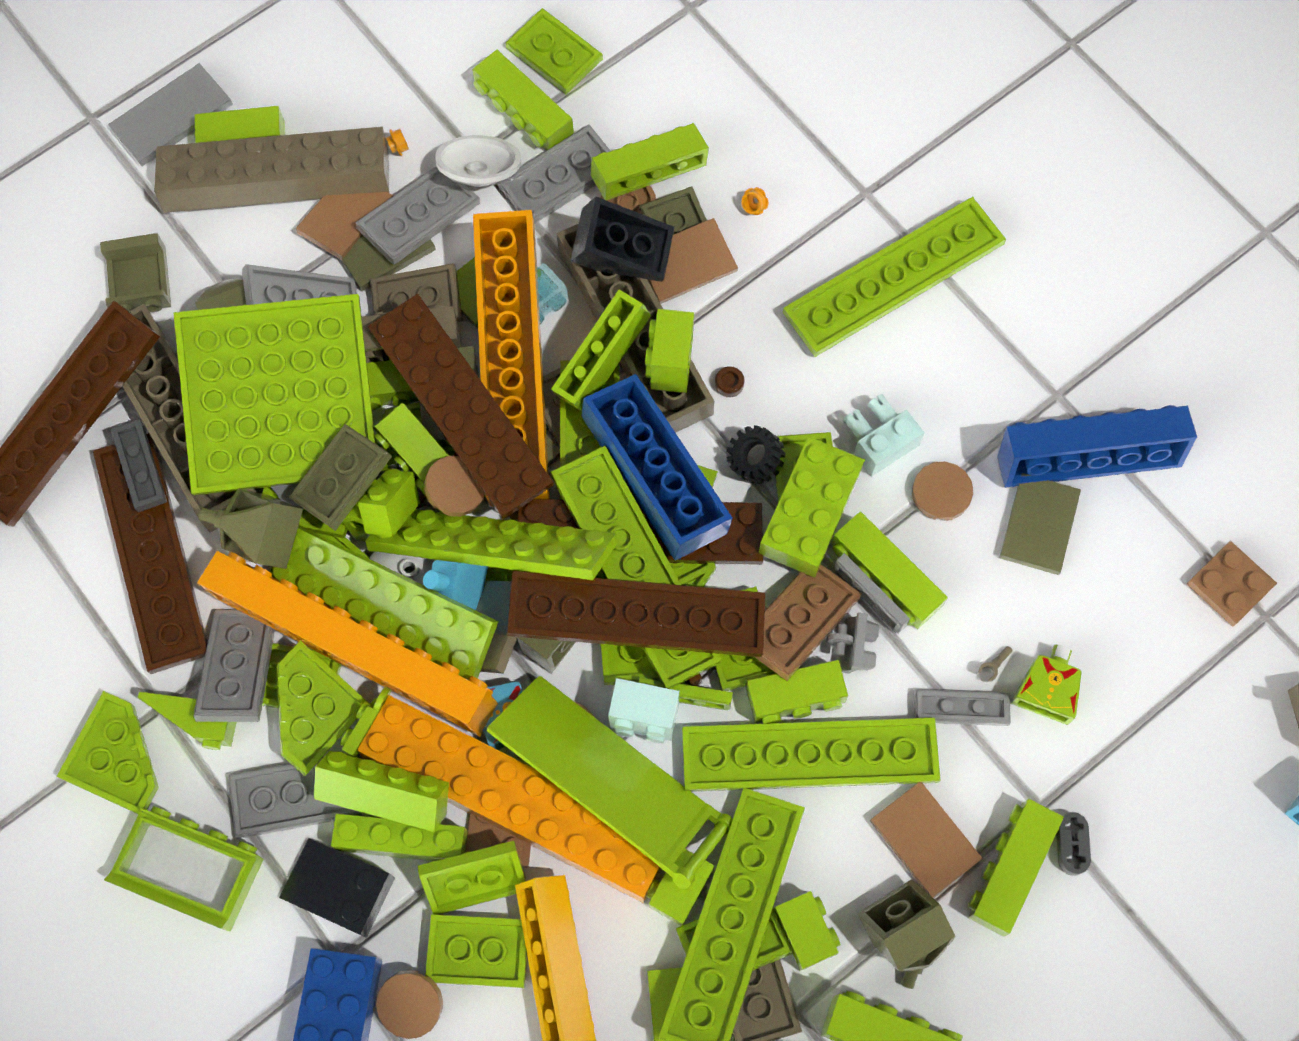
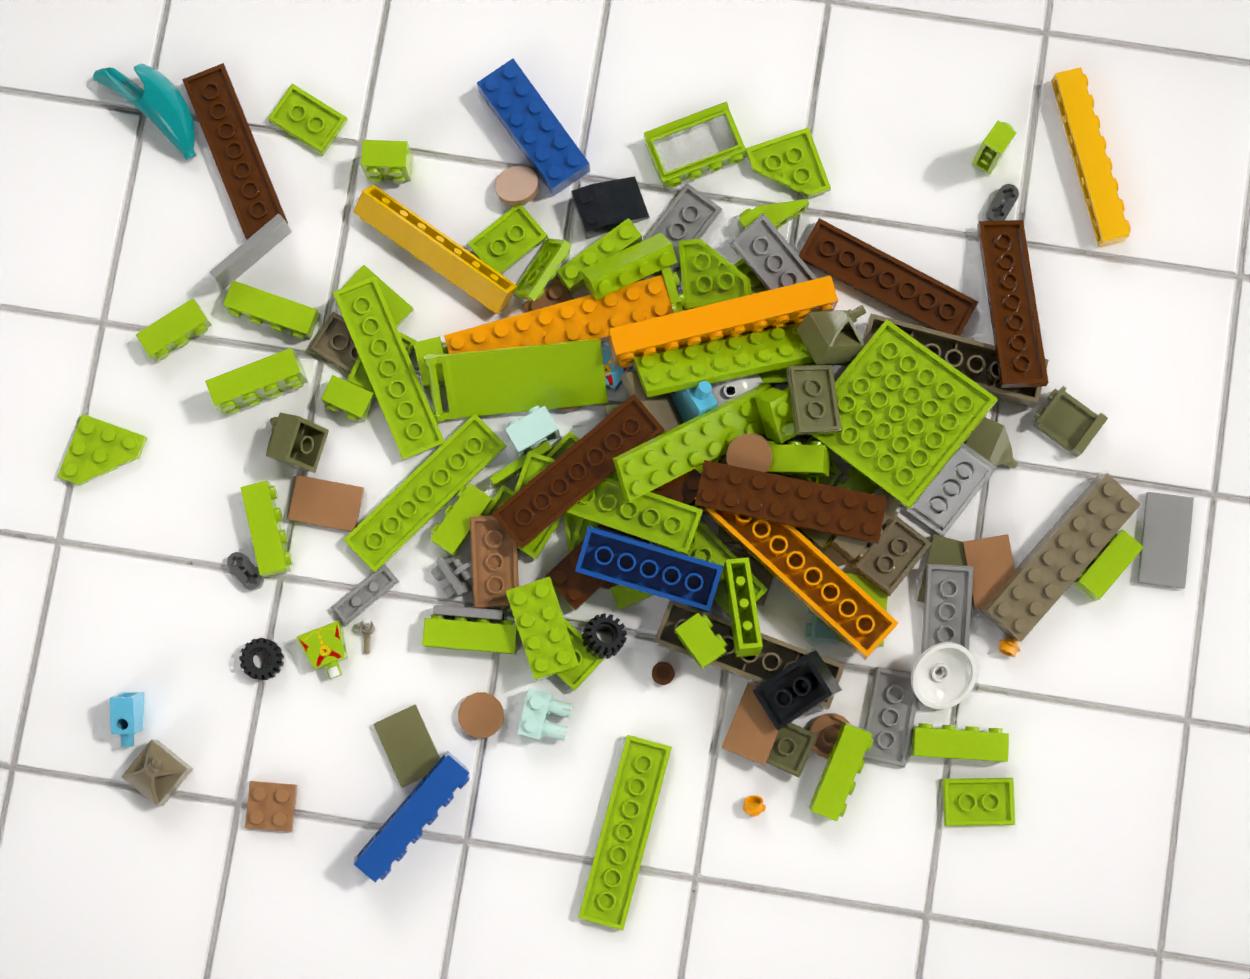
camera: 140 degrees right, 10 degrees up
(138, 465) = (940, 314): dark grey plate -> none
(1144, 724) = (249, 652): none -> black tyre

